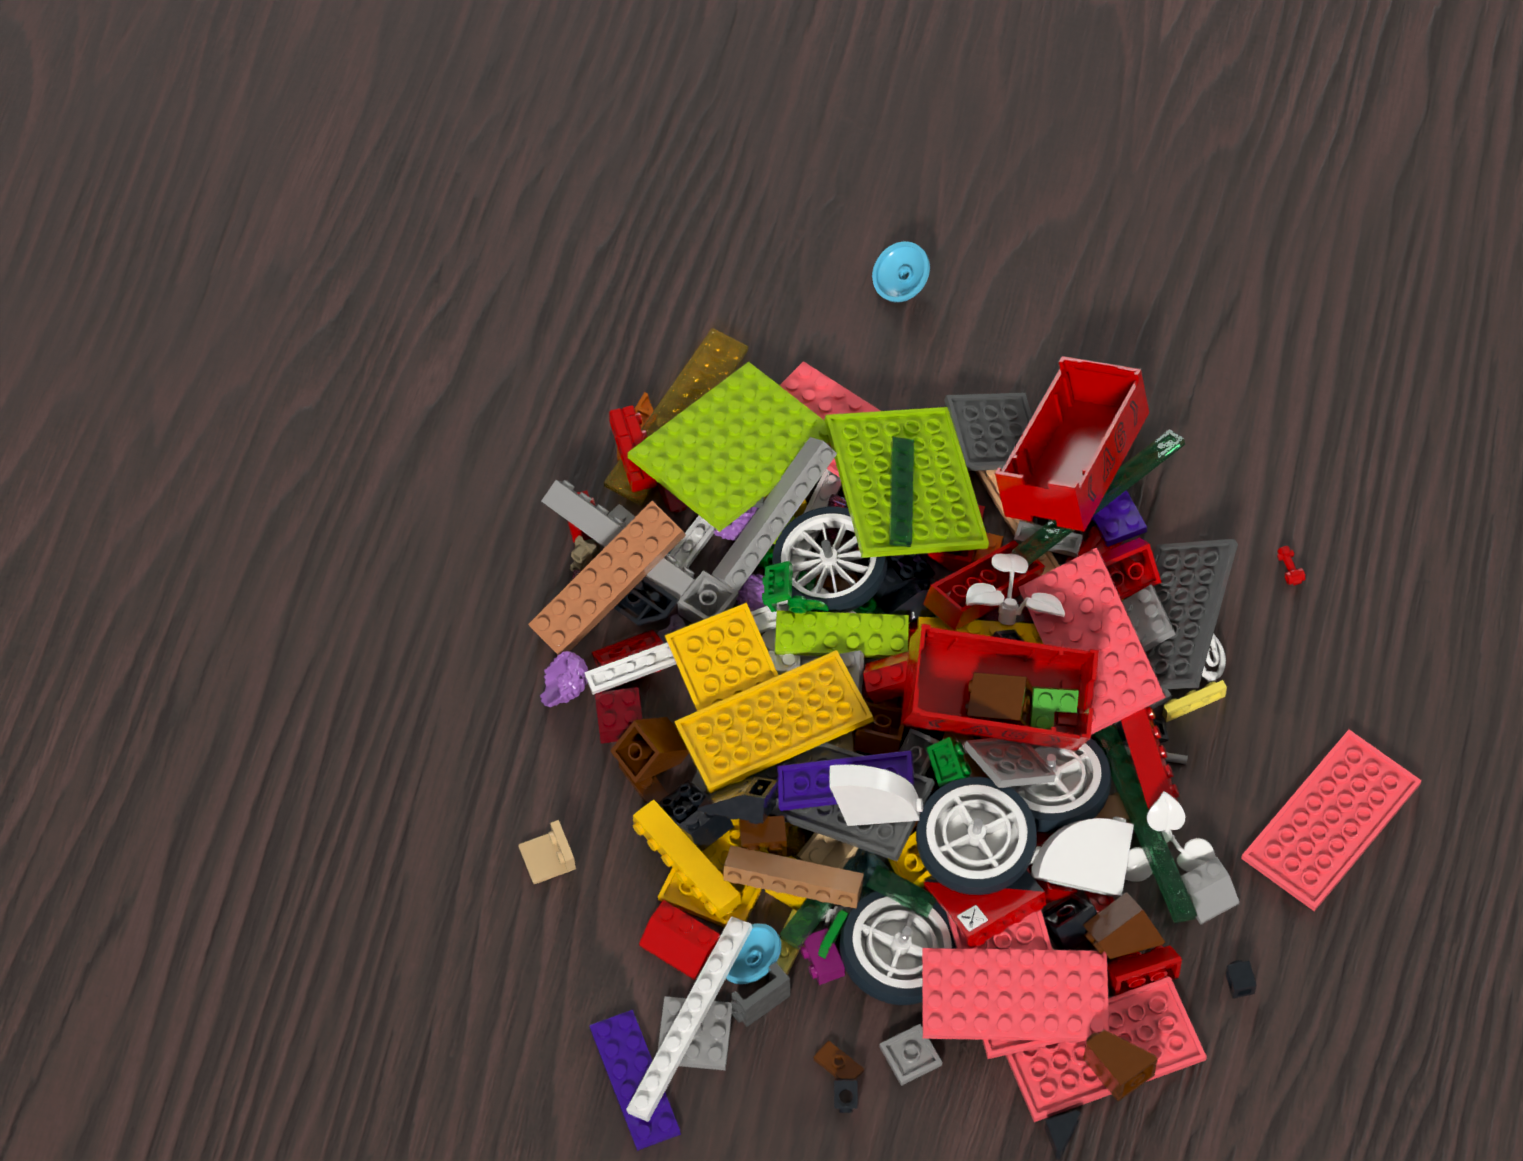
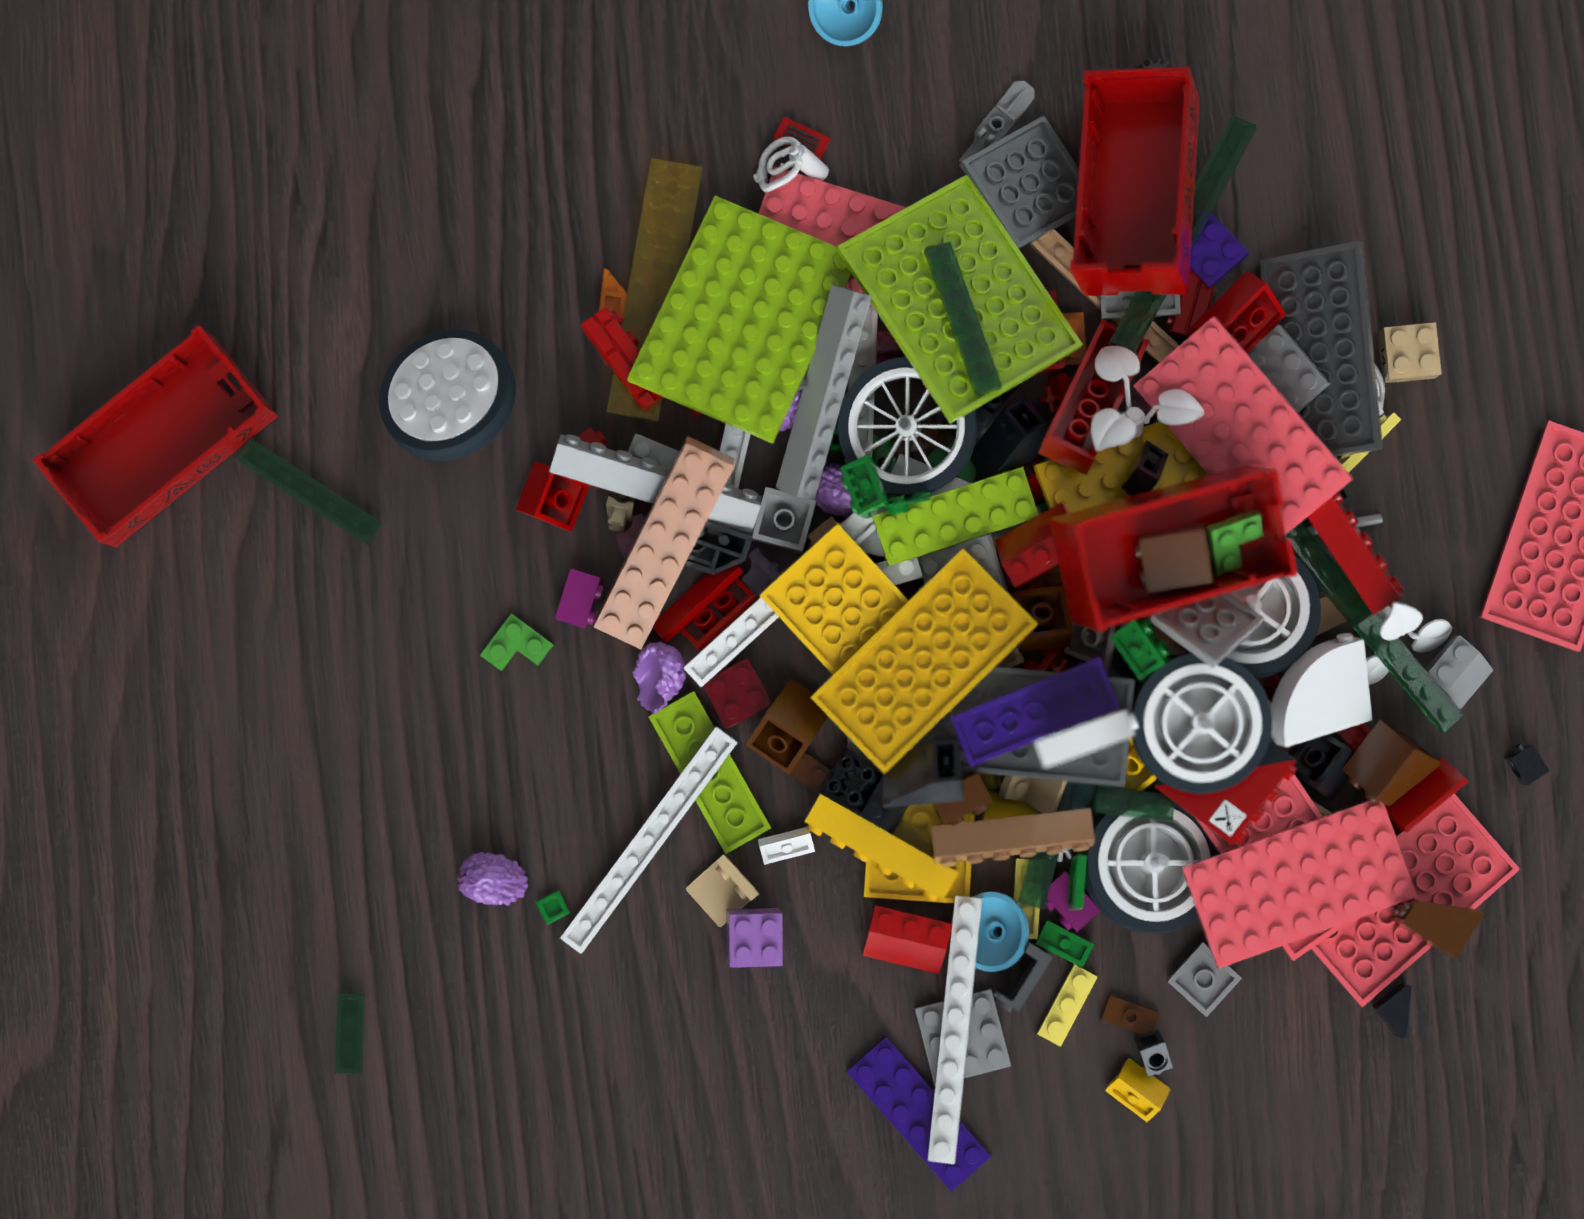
camera: 25 degrees left, 25 degrees up
(207, 861) = (349, 1033): none -> clear green plate
(258, 391) = (155, 439): none -> red piece
(354, 471) = (309, 491): none -> clear green plate
(369, 785) = (492, 879): none -> medium lavender piece
(408, 825) = (552, 907): none -> green tile
(464, 622) = (515, 637): none -> bright green plate
(487, 430) = (447, 395): none -> white wheel
(504, 796) = (649, 840): none -> white plate
(524, 609) = (579, 599): none -> magenta brick
(537, 532) = (552, 497): none -> red slope
(557, 894) = (754, 937): none -> medium lavender brick
(574, 767) = (726, 797): none -> lime plate
(611, 838) = (786, 845): none -> white plate
(616, 639) = (694, 602): none -> red tile
(790, 1038) = (1067, 1005): none -> light yellow plate
(807, 988) = (1064, 943): none -> green plate
(822, 1122) = (1138, 1091): none -> yellow panel
(823, 358) = (800, 159): none -> white piece
(832, 353) = (809, 138): none -> red tile
(1001, 382) = (1006, 112): none -> light grey piece
(1252, 645) = (1409, 352): none -> tan brick
(1293, 576) = (1426, 245): red bar -> none

